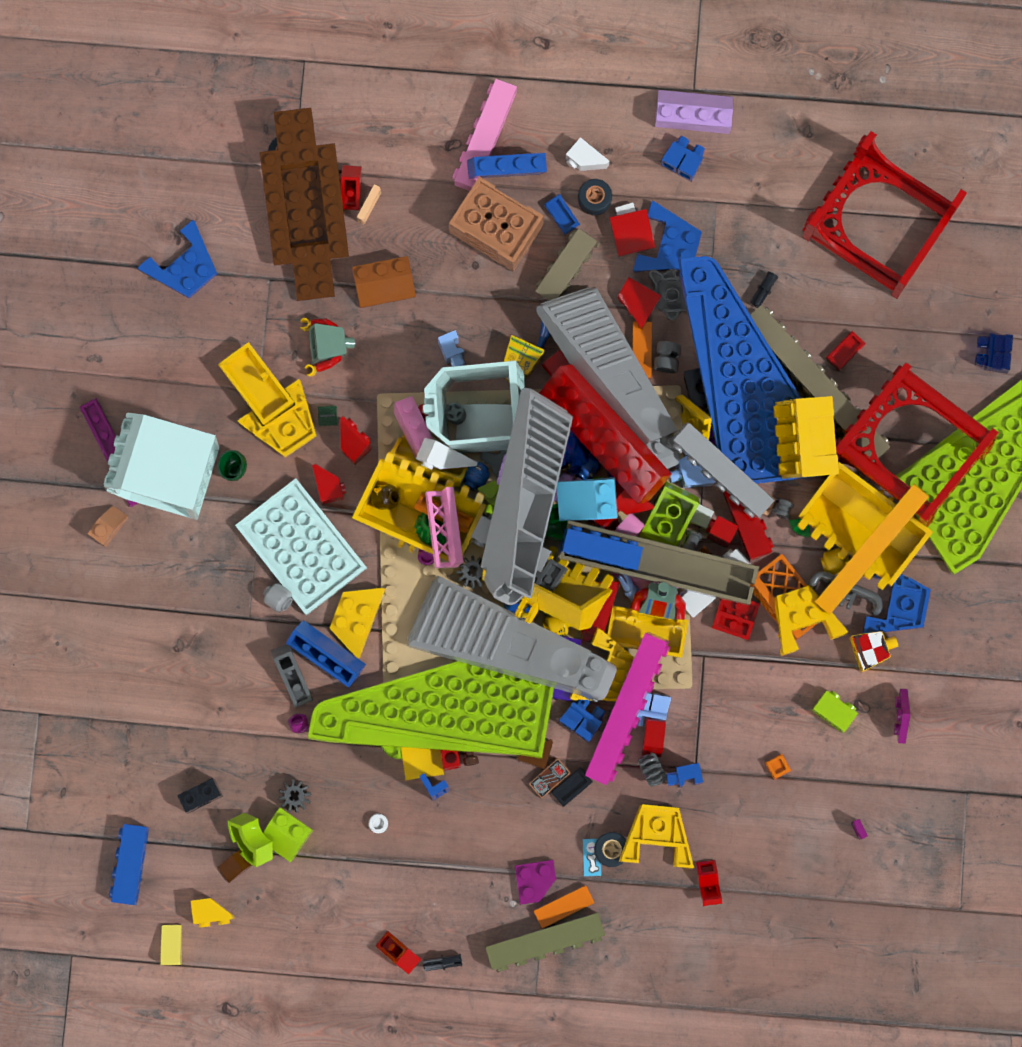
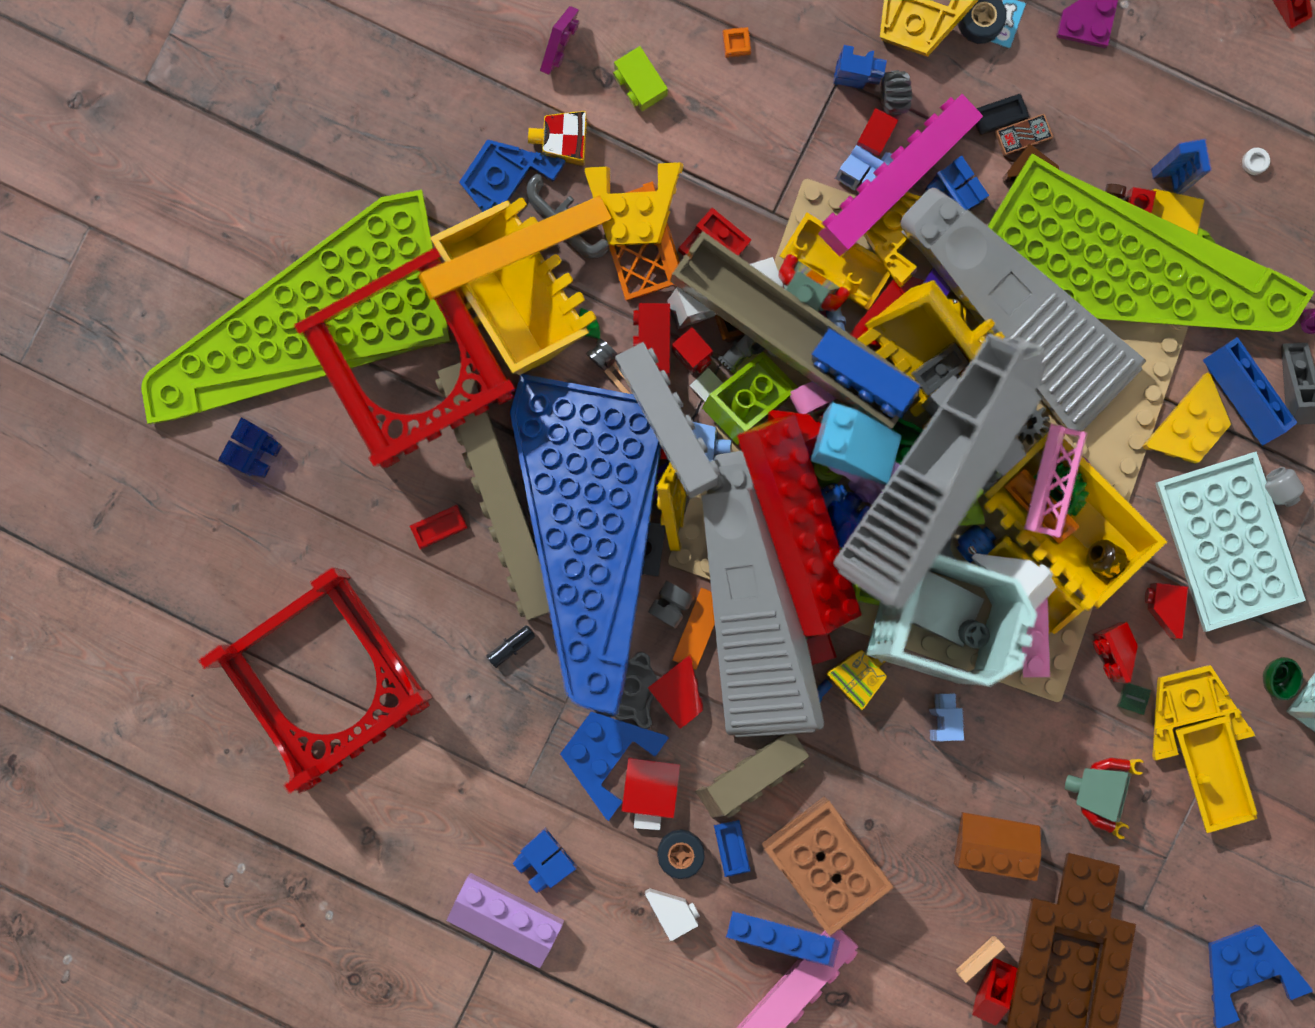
camera: 160 degrees left, 5 degrees up
(806, 437) = (541, 419): yellow container -> none
(832, 563) = (570, 258): yellow head -> none

